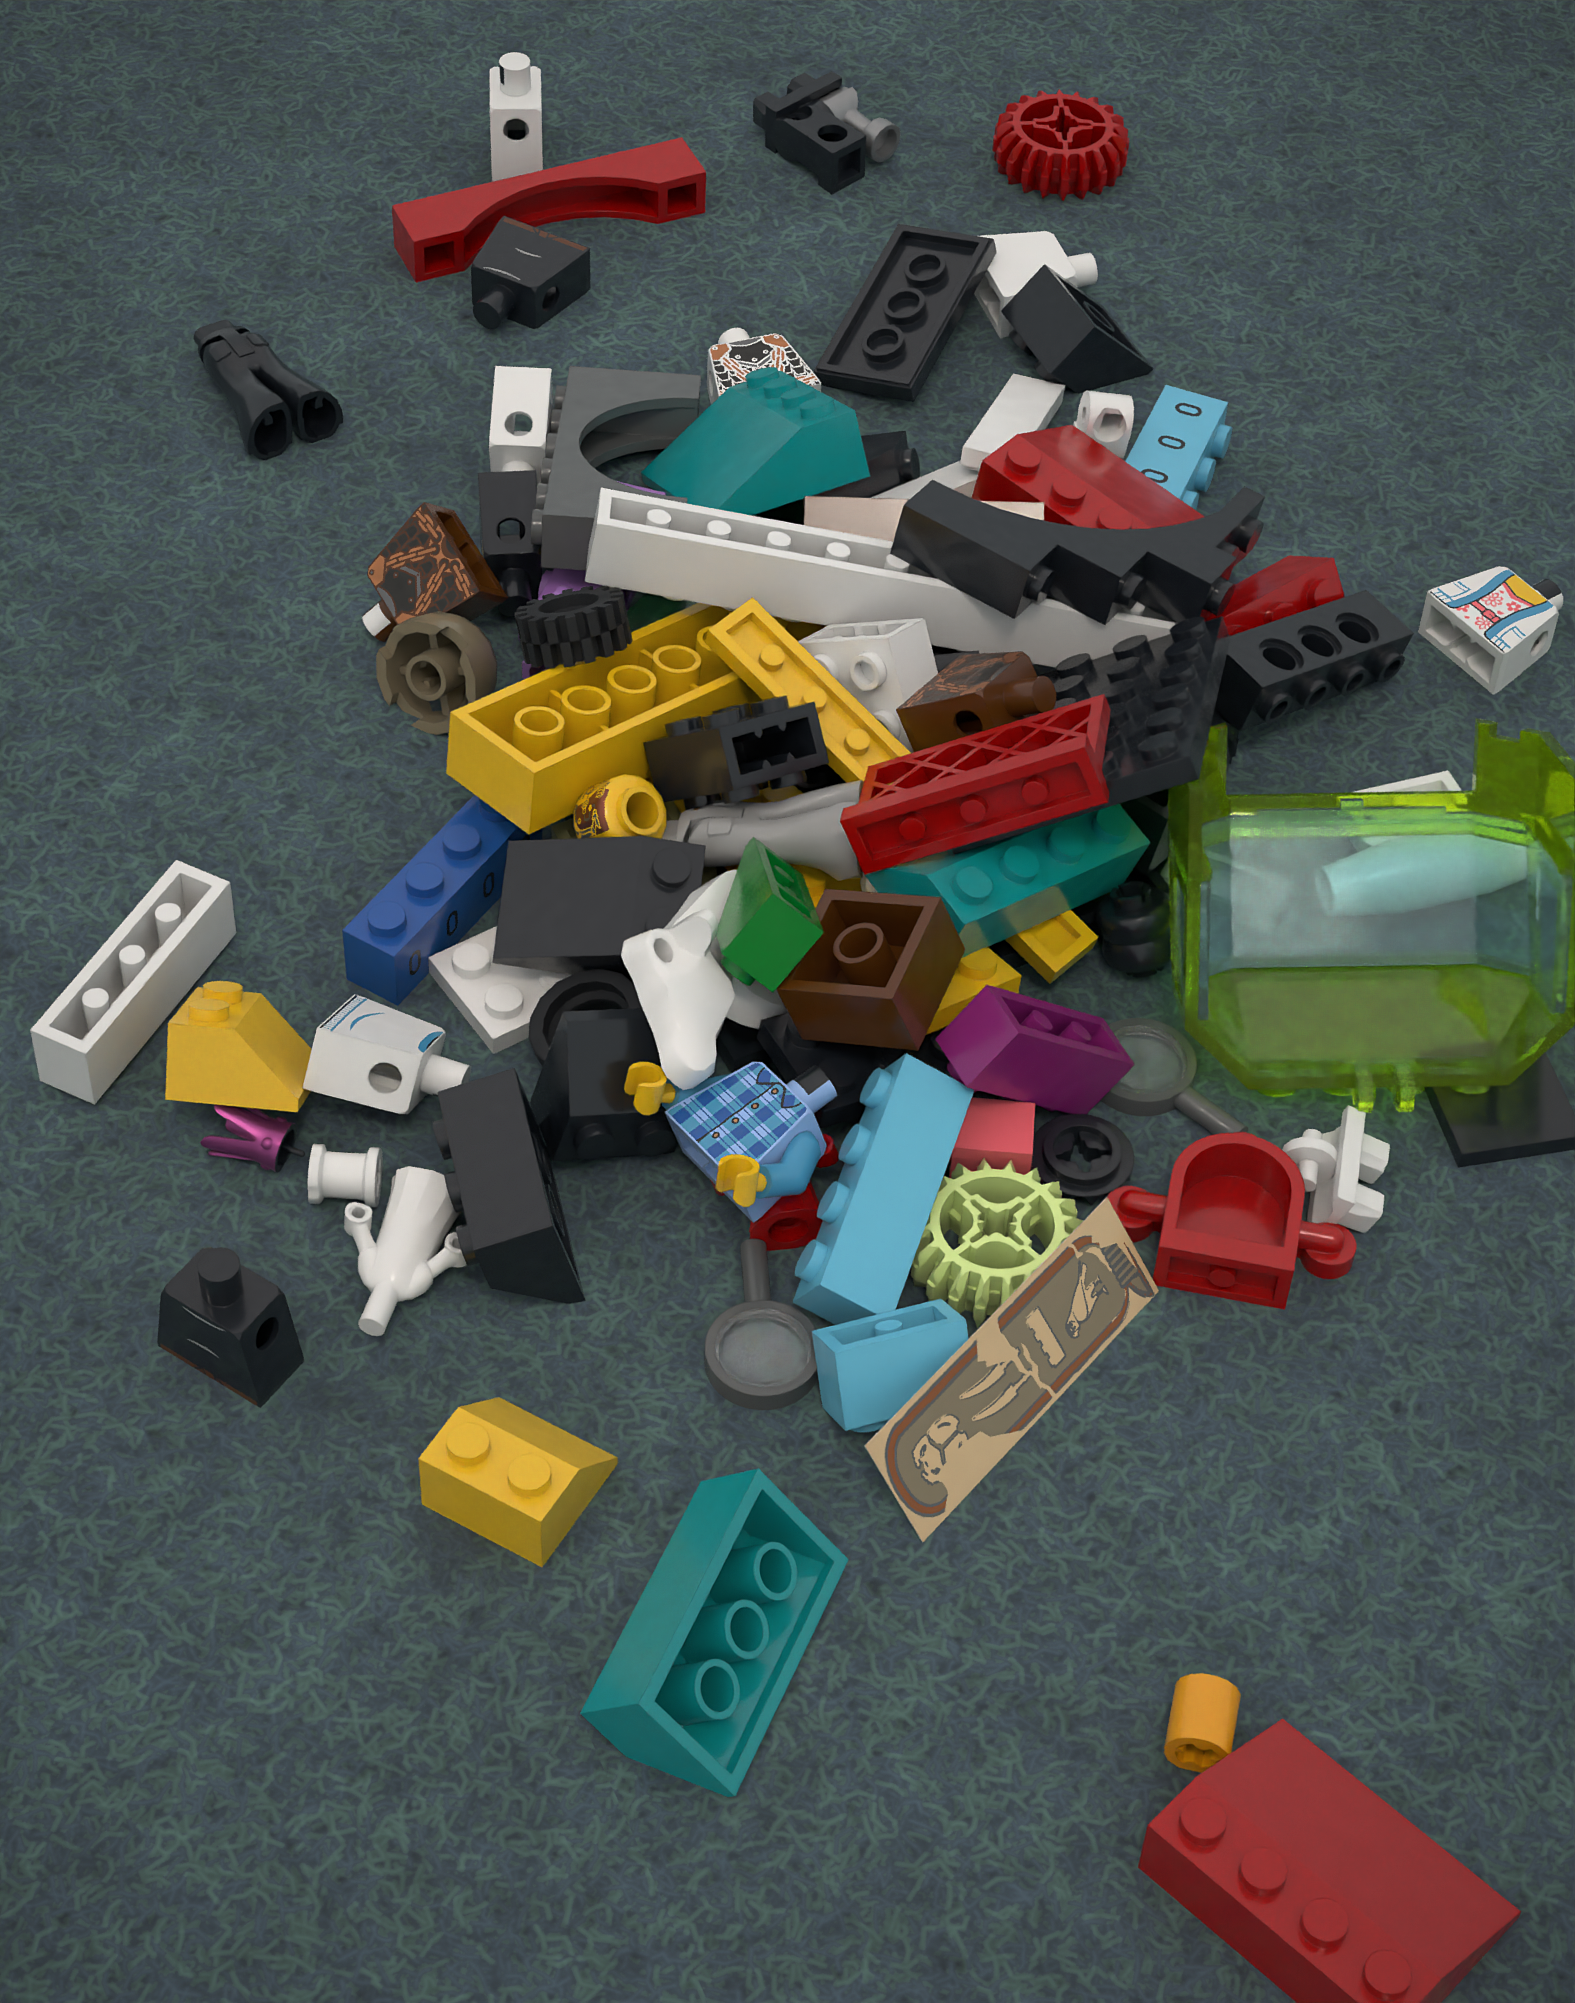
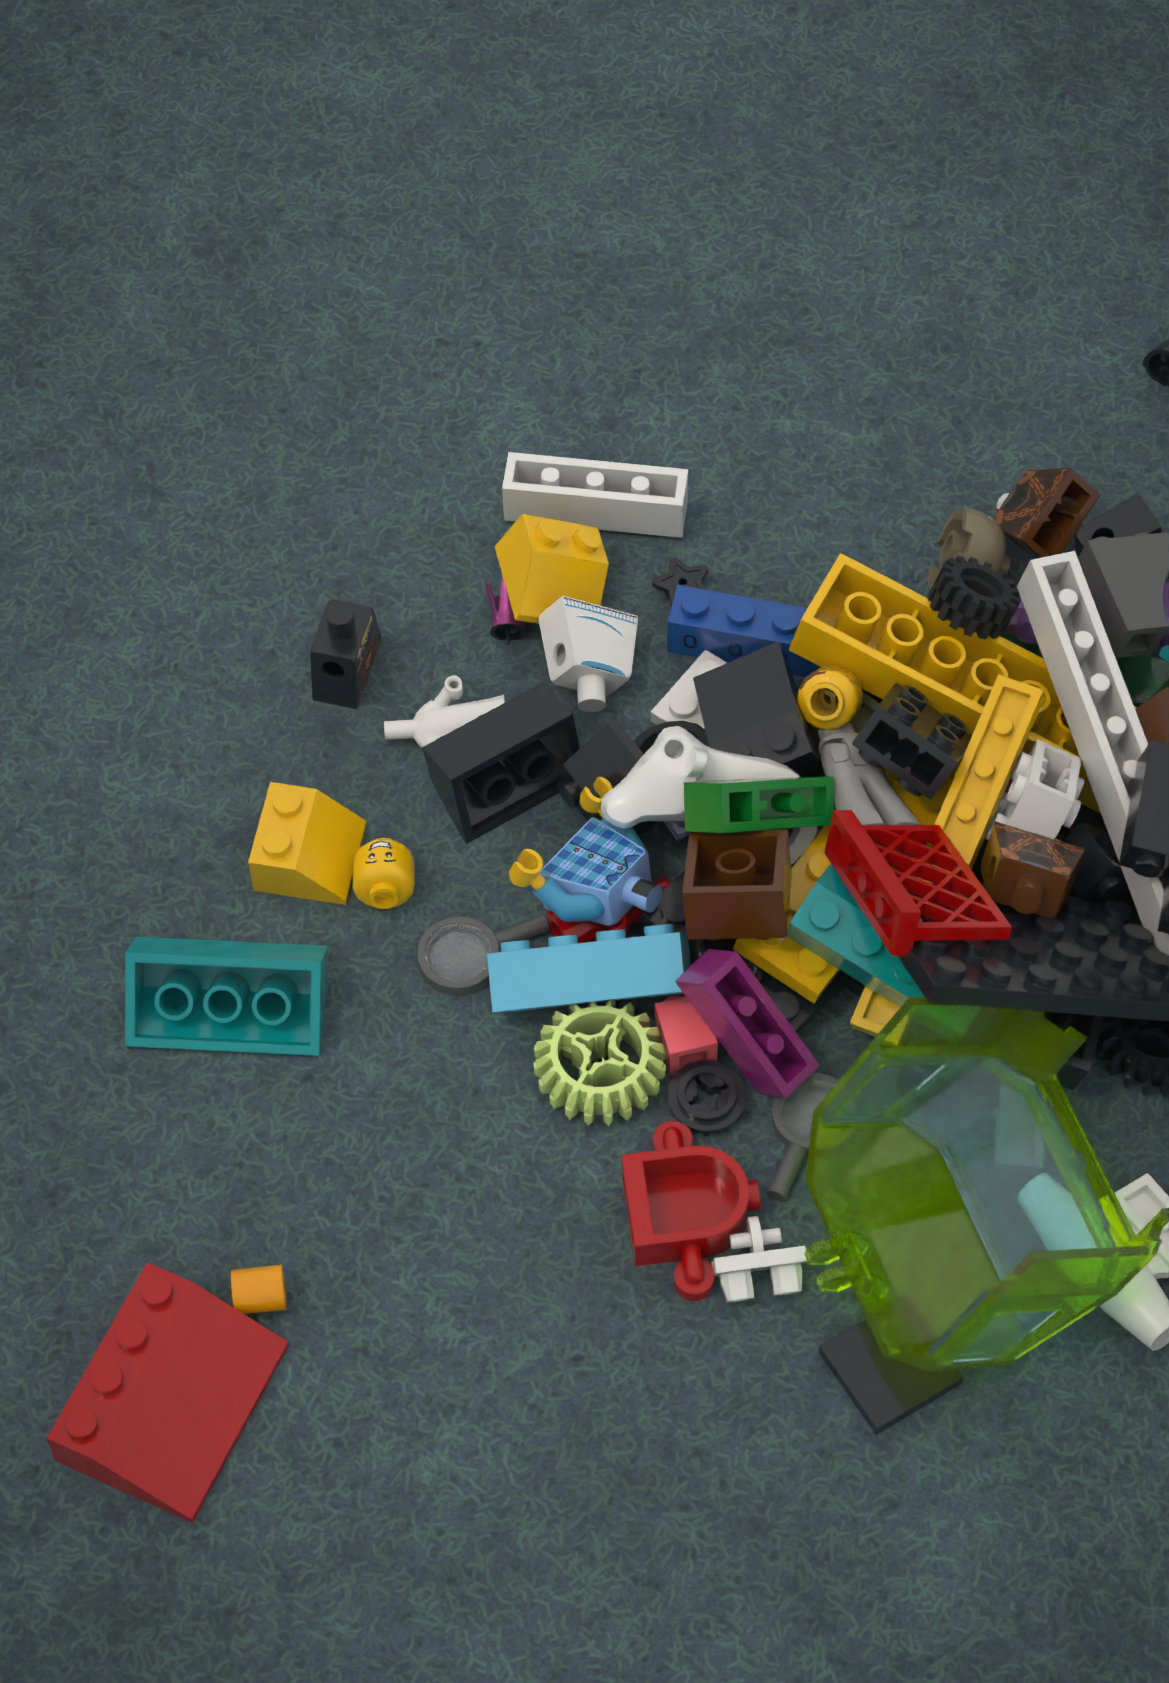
camera: 75 degrees right, 10 degrees up
(310, 965) = (680, 572): none -> black plate
(345, 1175) = (497, 670): white bush -> none
(608, 1390) = (385, 871): none -> yellow head
(882, 1360) = (460, 1025): medium azure brick -> none
(1012, 1370) = (494, 1100): sticker -> none

